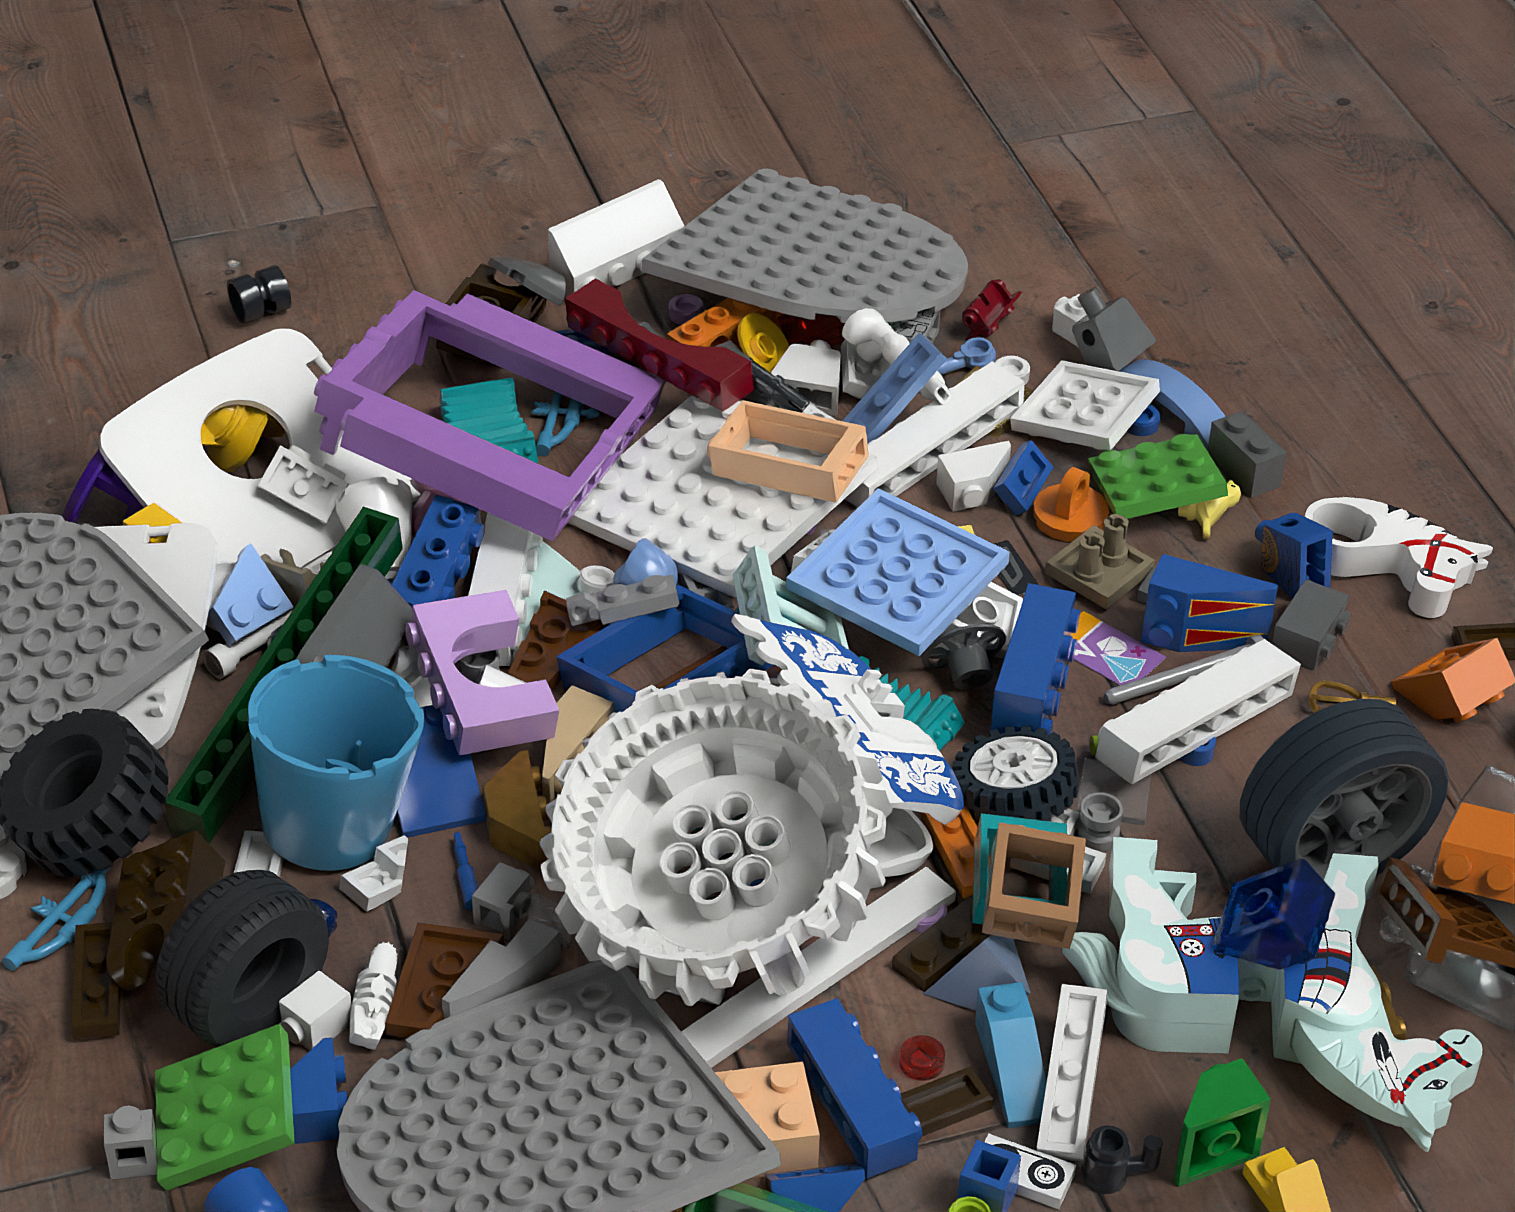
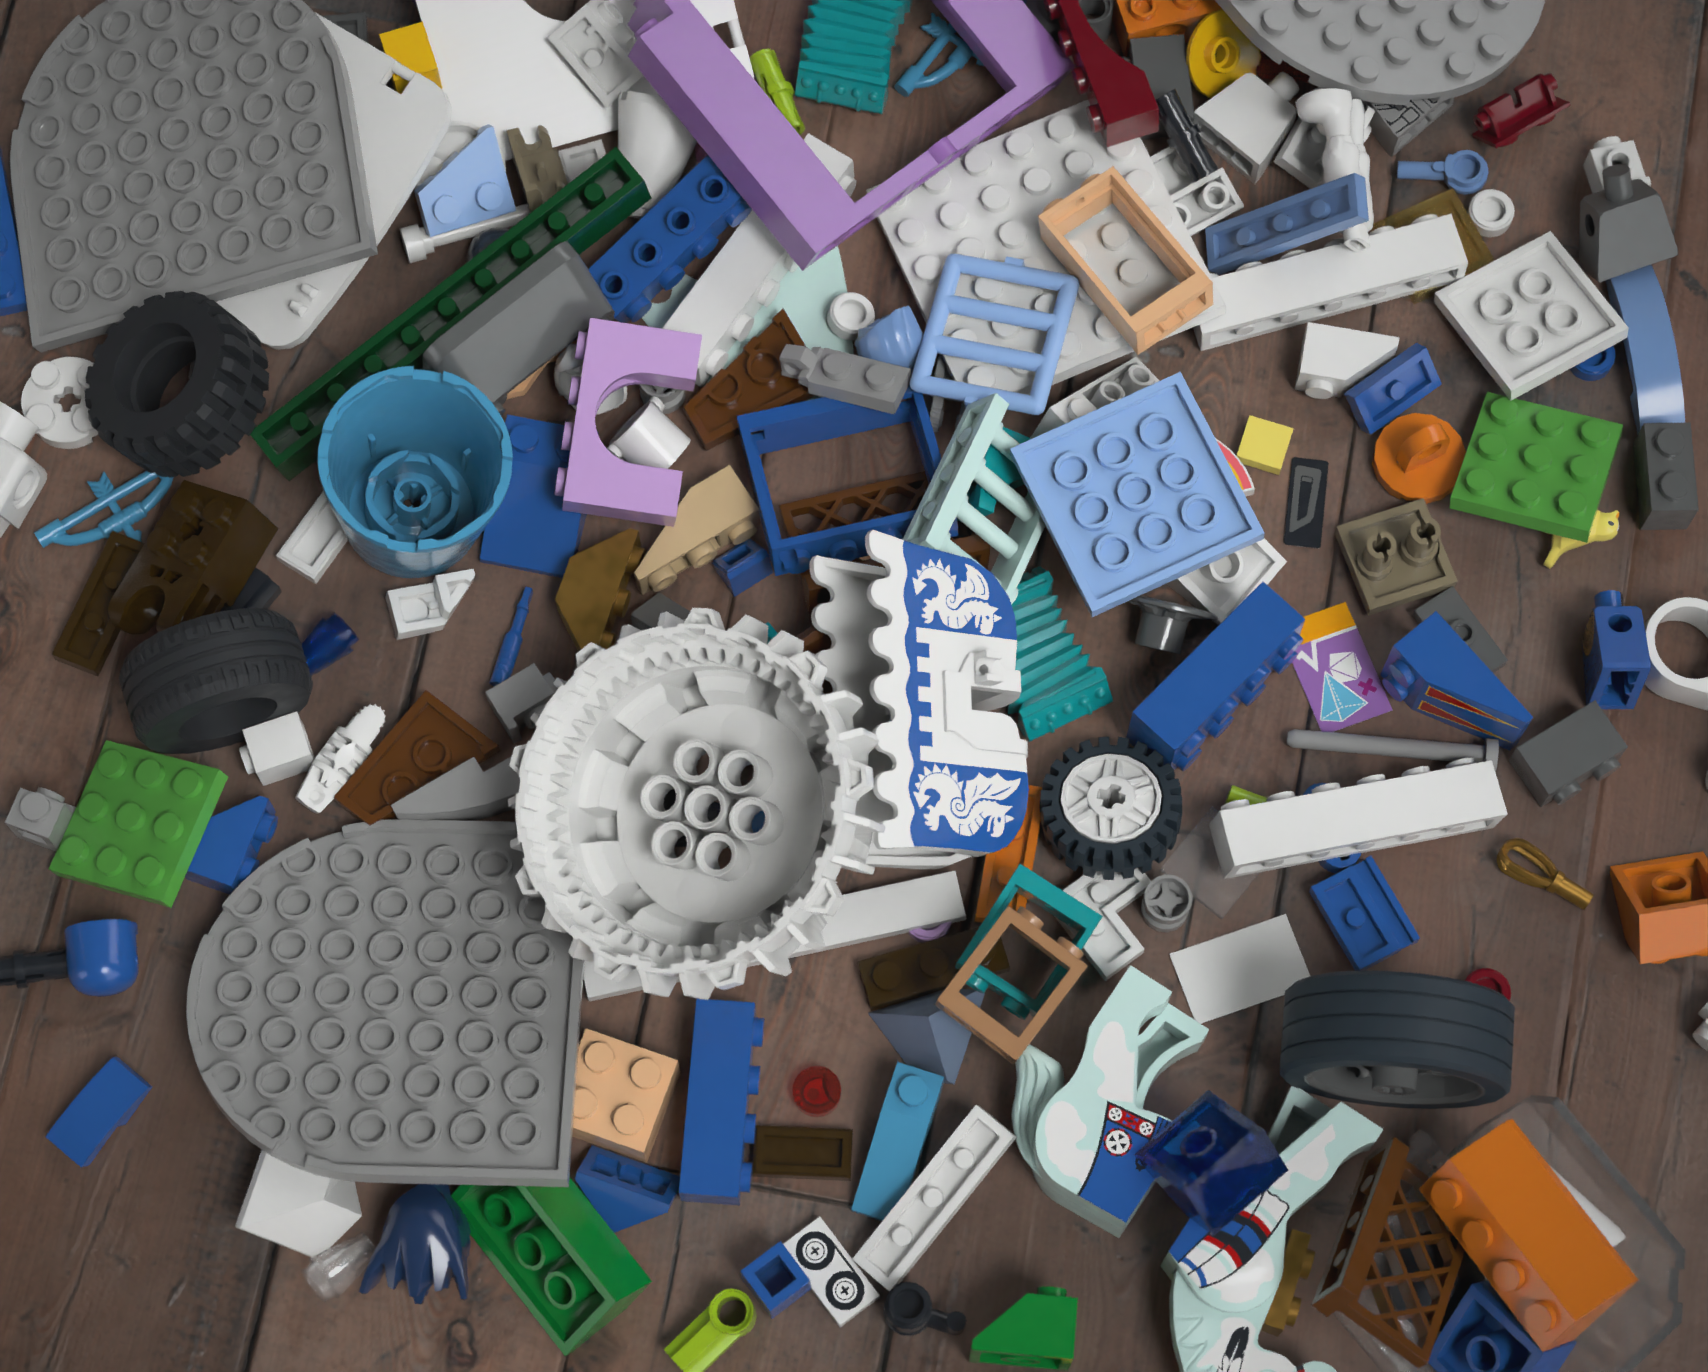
camera: 30 degrees right, 30 degrees up
(708, 495) = (945, 302): none -> light blue bar
(1192, 841) = (1239, 969): none -> white sticker
(1228, 765) = (1364, 914): none -> blue plate

